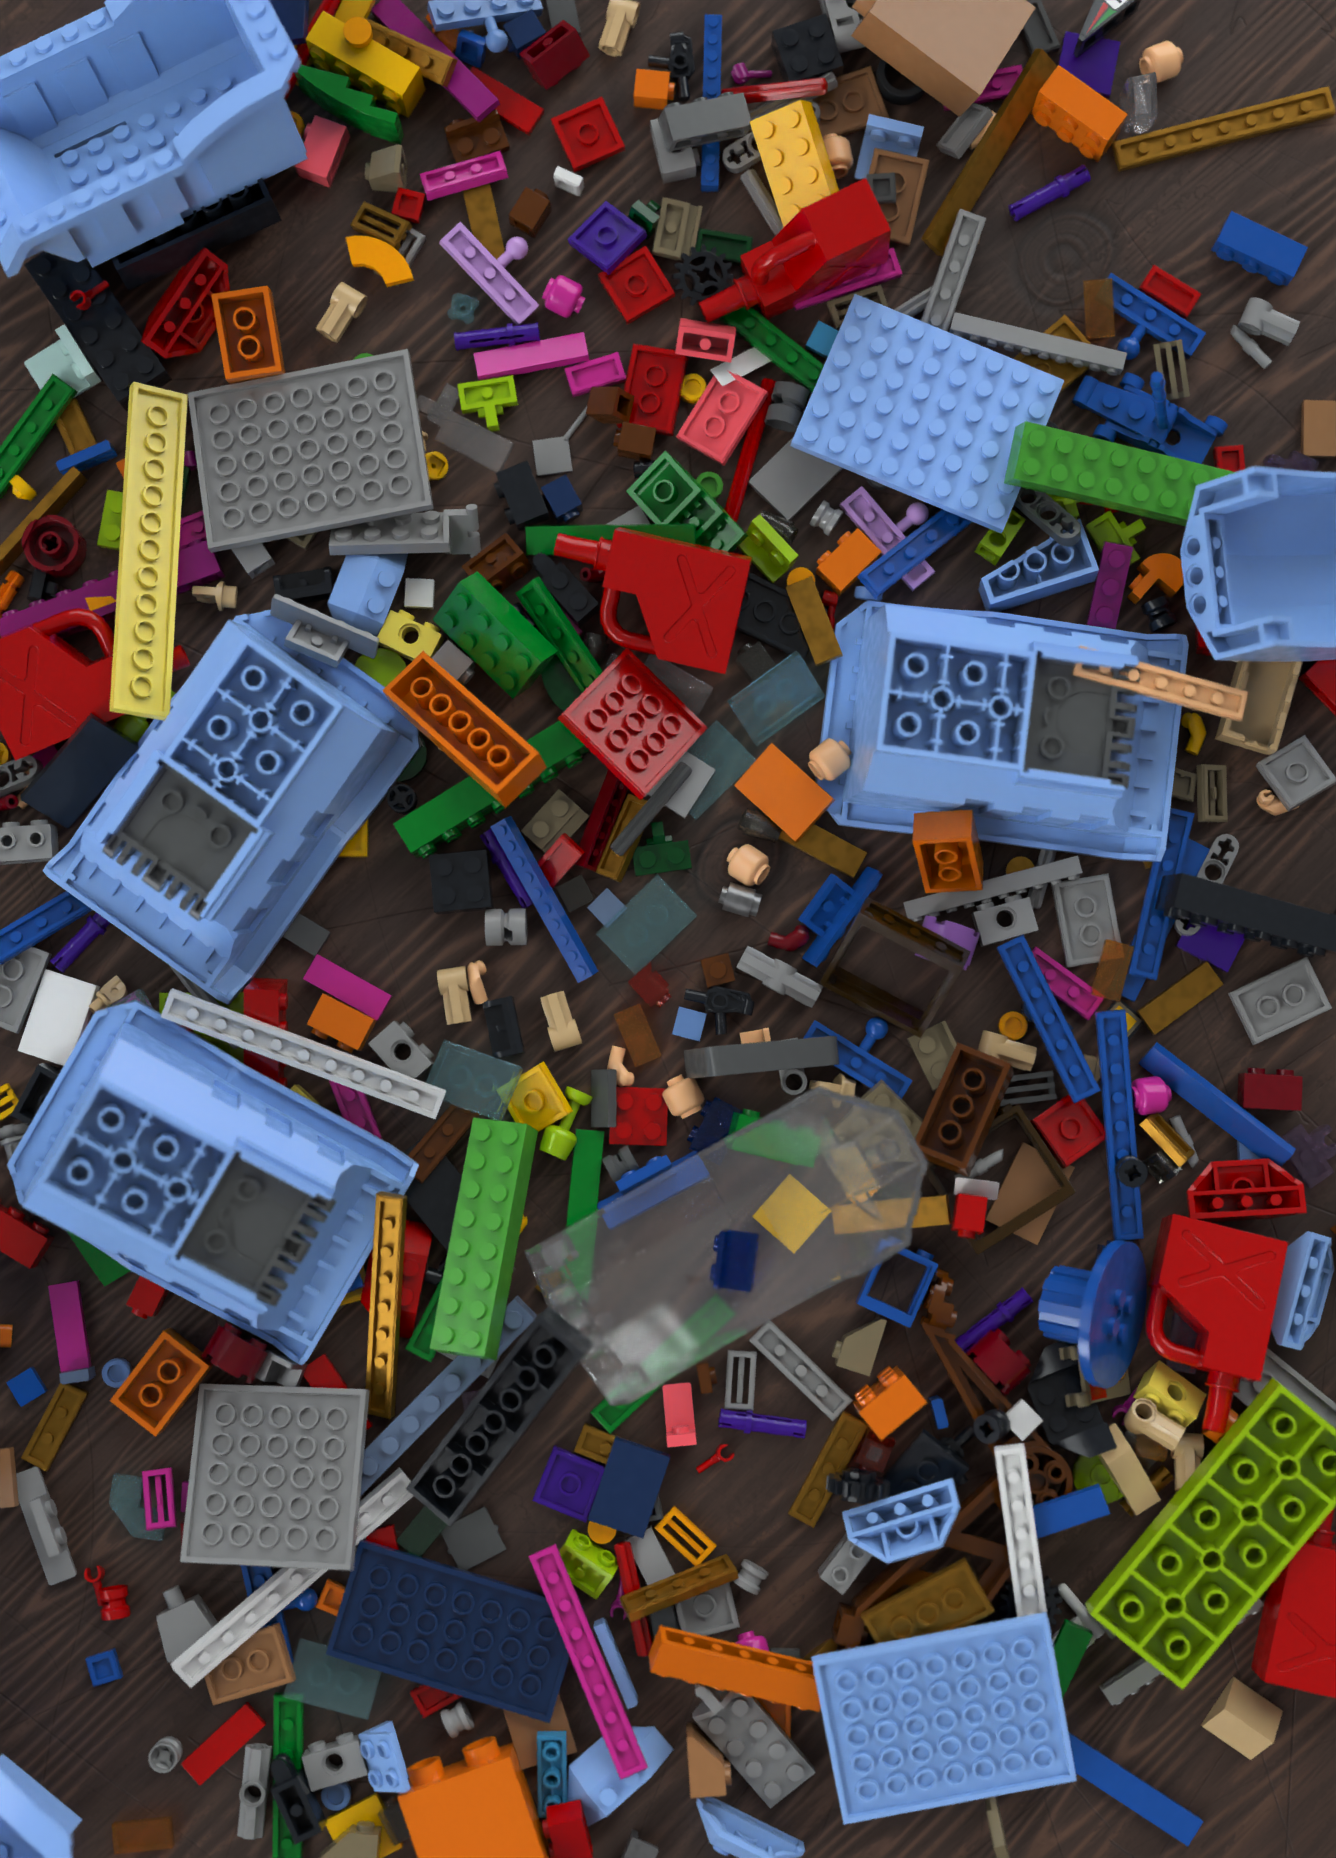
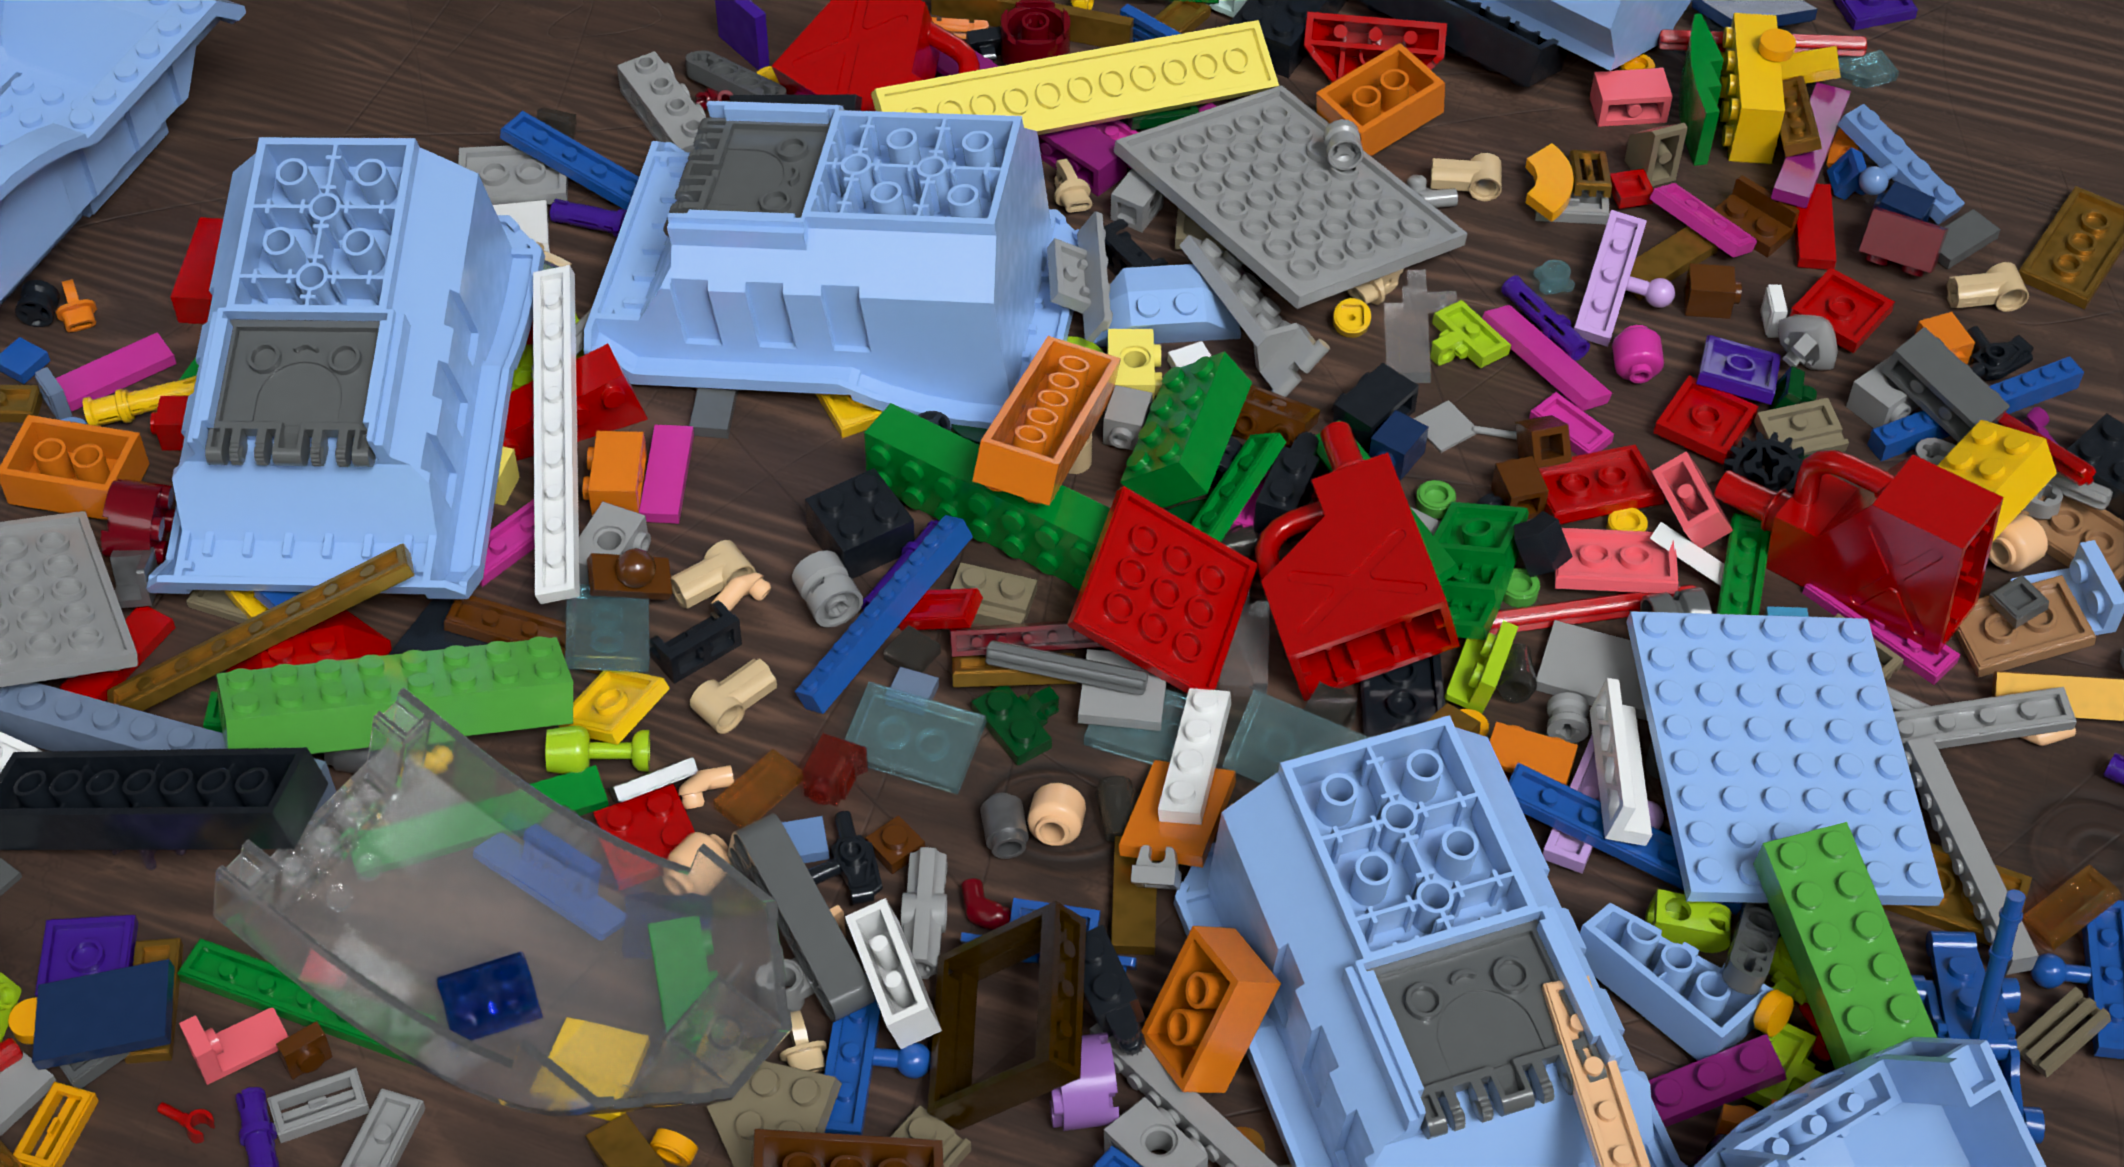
camera: 60 degrees right, 35 degrees down
(114, 1327) = (126, 405): none -> yellow pin
(287, 389) = (1343, 144): none -> light grey wheel
(342, 350) = (1437, 198): none -> light grey arm
(441, 1051) = (629, 575): none -> reddish brown tile
(608, 176) = (1808, 341): none -> light grey piece
(612, 498) = (1435, 498): none -> bright green tile
(699, 460) = (1542, 544): none -> black piece
(752, 762) = (1194, 756): none -> white plate
(829, 831) = (1156, 875): none -> light grey tile
(830, 1019) = (893, 974): none -> white brick
(889, 514) = (1619, 767): none -> white fence
(906, 899) = (1111, 993): none -> black hinge
(1090, 527) = (1773, 1012): none -> light orange tile

